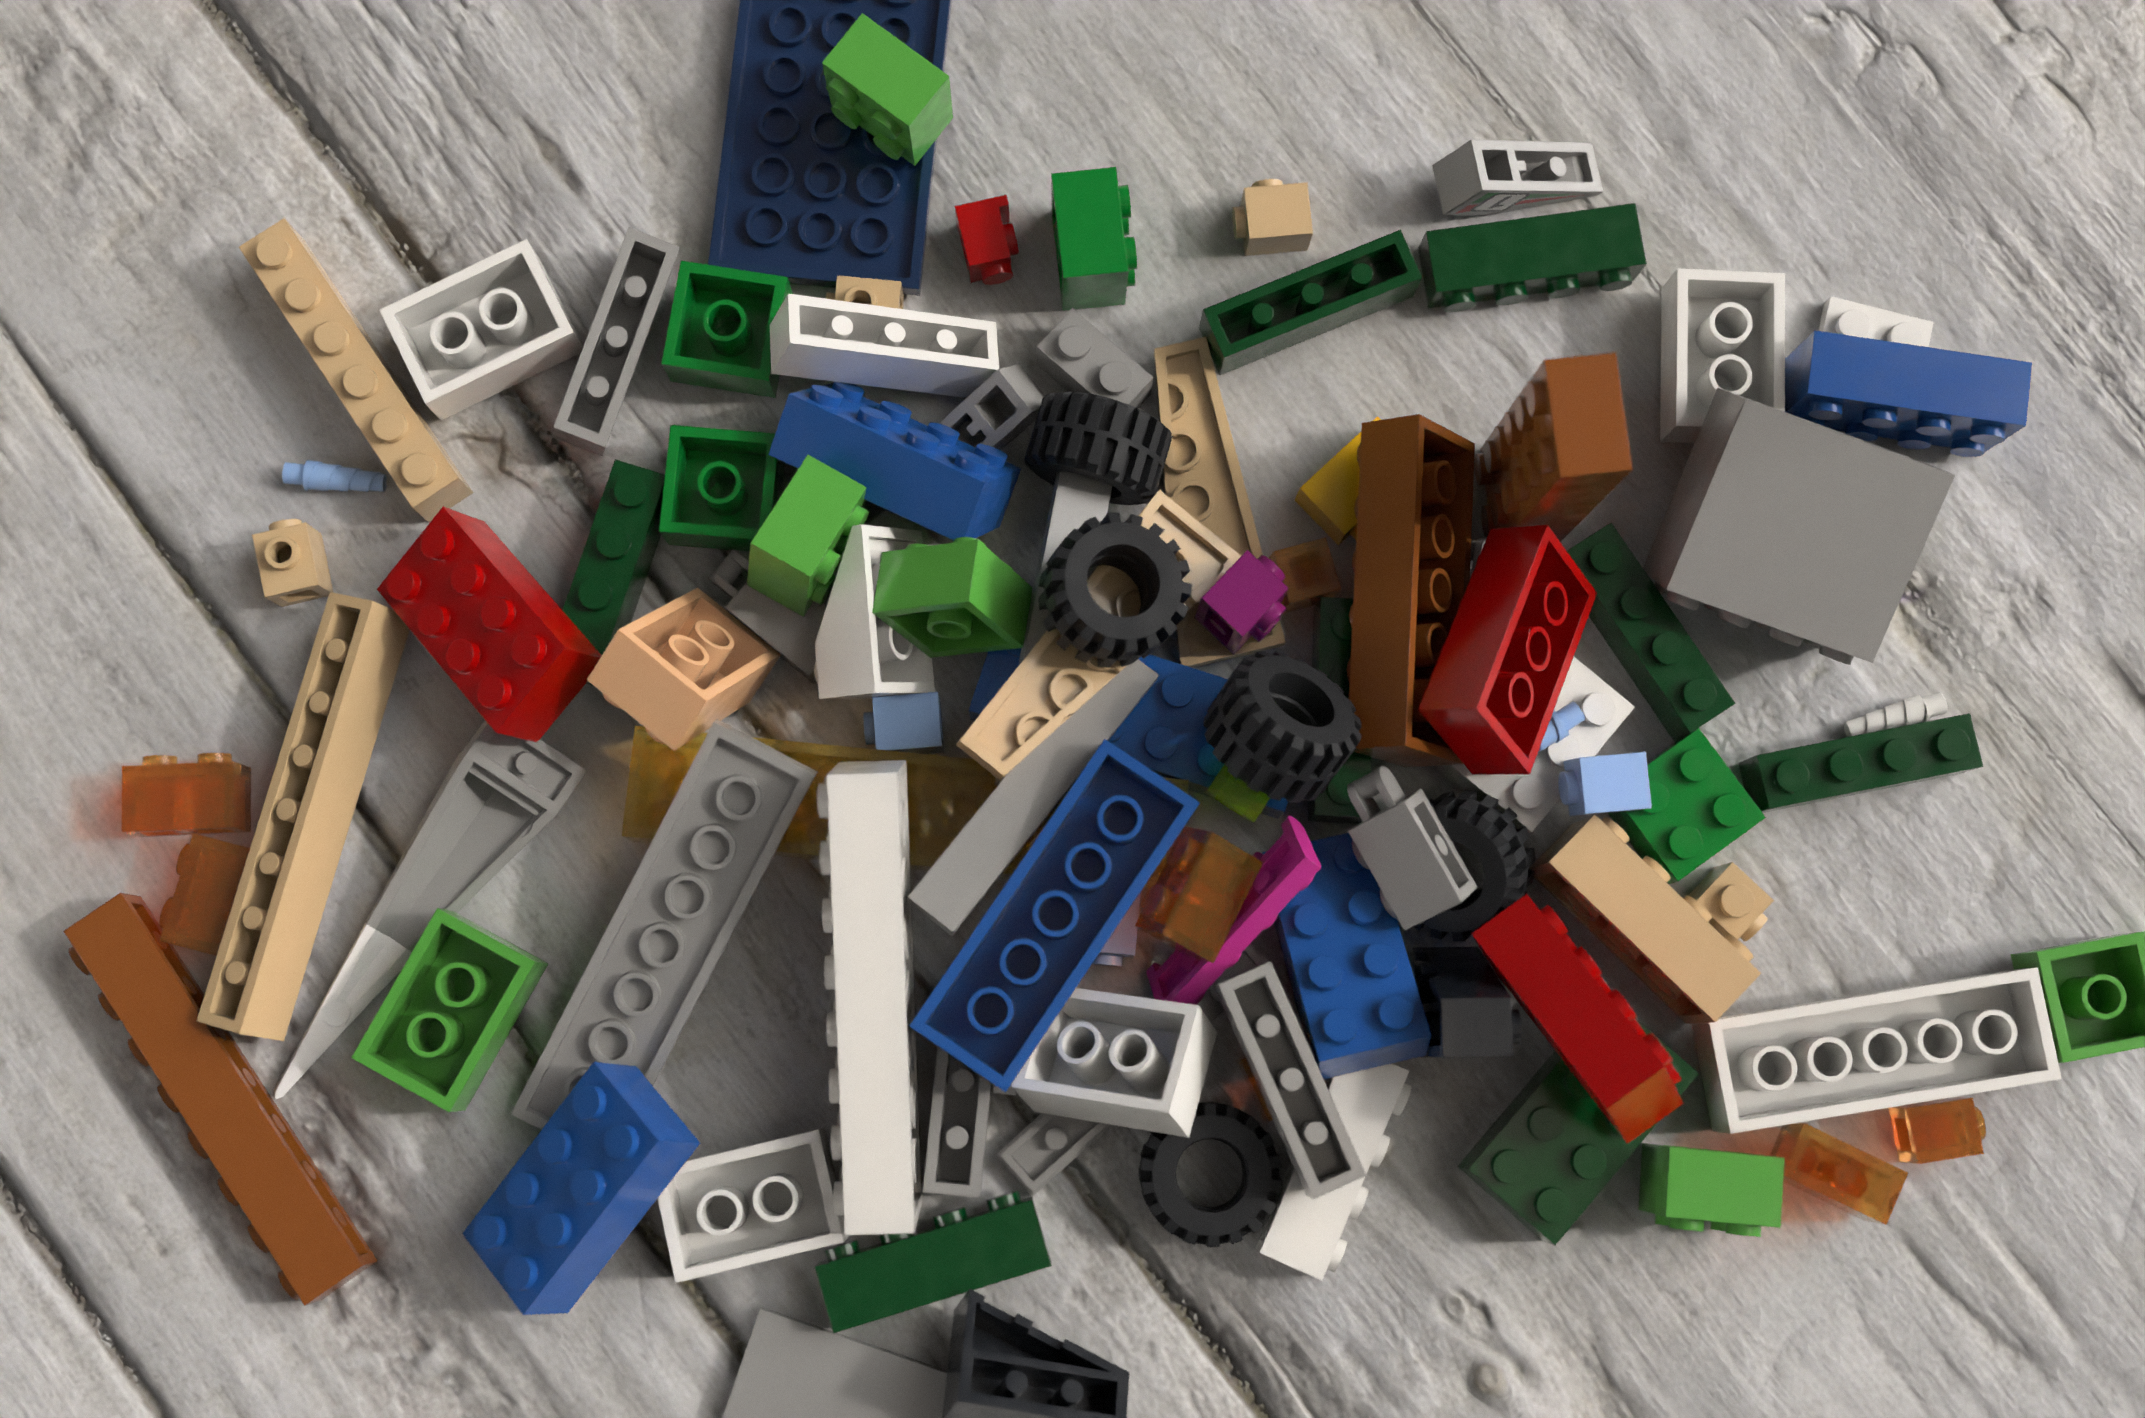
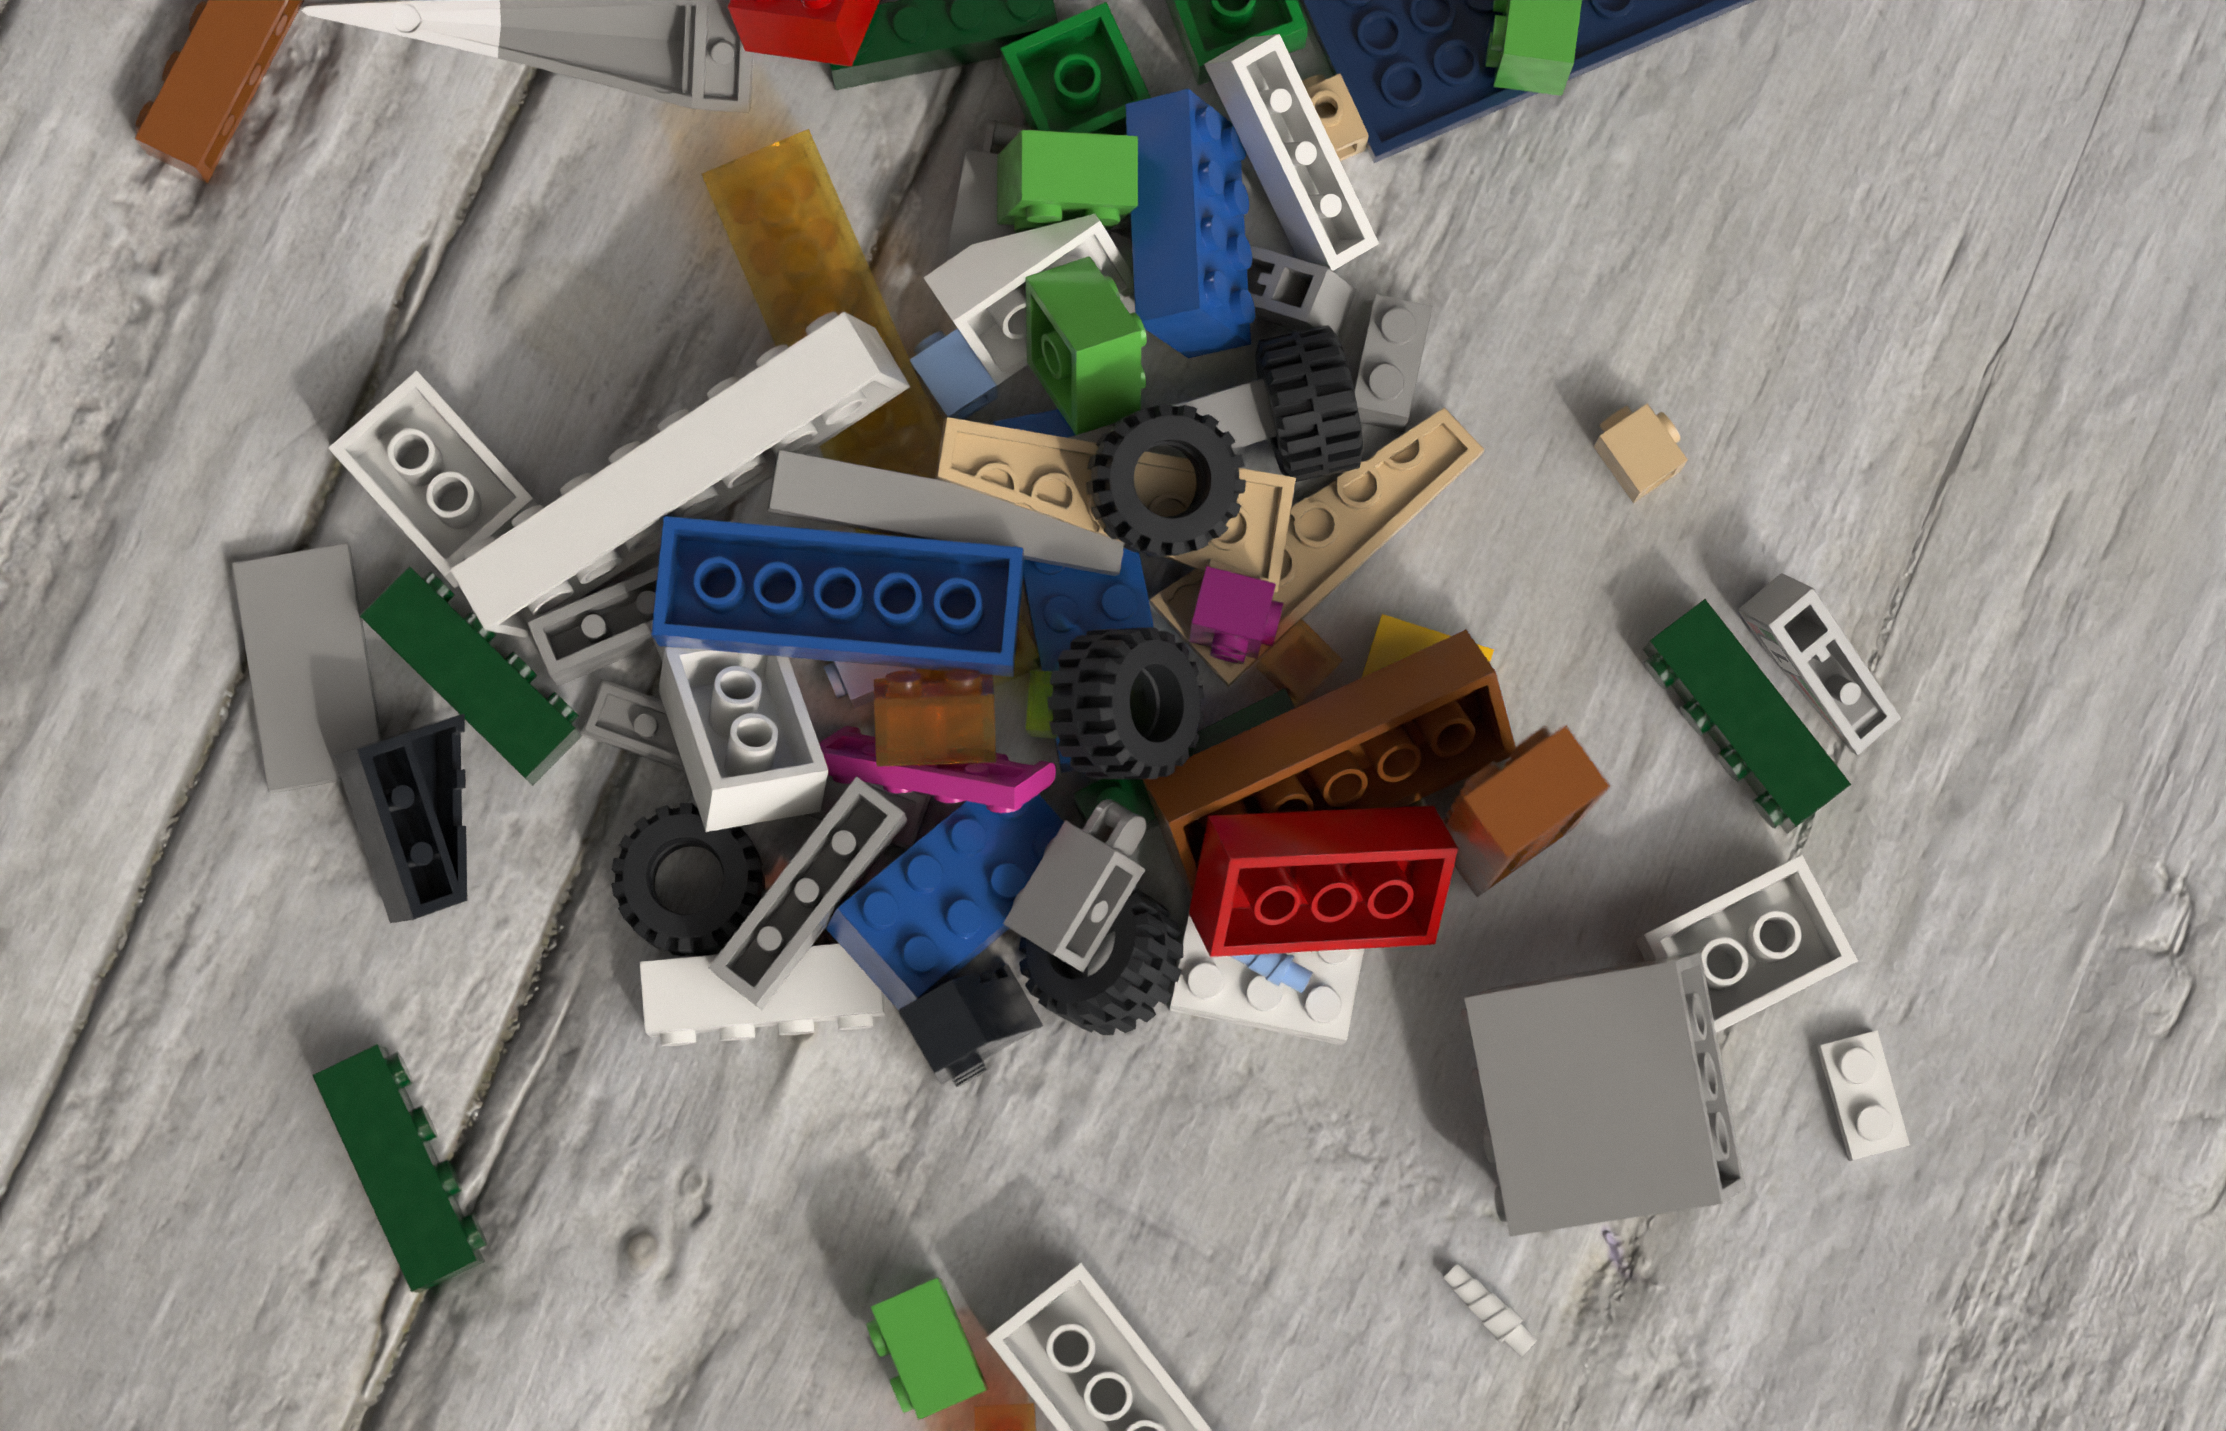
camera: 65 degrees right, 0 degrees up
(450, 1011) = (463, 115): bright green brick -> none
(580, 1189) = (366, 317): blue brick -> none
(673, 916) = (627, 266): light grey plate -> none
(683, 668) = (885, 141): light nougat brick -> none
(987, 239) = (1460, 194): red brick -> none
(1089, 238) = (1512, 286): green brick -> none
(1310, 302) = (1571, 527): dark green brick -> none
(1553, 1149) = (924, 1197): dark green brick -> none
(1581, 1016) = (1009, 1127): red brick -> none
(1605, 784) = (1247, 1041): light blue brick -> none
(1645, 920) = (1146, 1154): tan brick -> none
(1648, 636) = (1430, 1017): dark green brick -> none
(1694, 807) = (1279, 1141): green brick -> none
(1733, 901) = (1210, 1236): tan brick -> none
(1861, 763) = (1419, 1294): dark green brick -> none
(1907, 392) = (1807, 1142): blue brick -> none

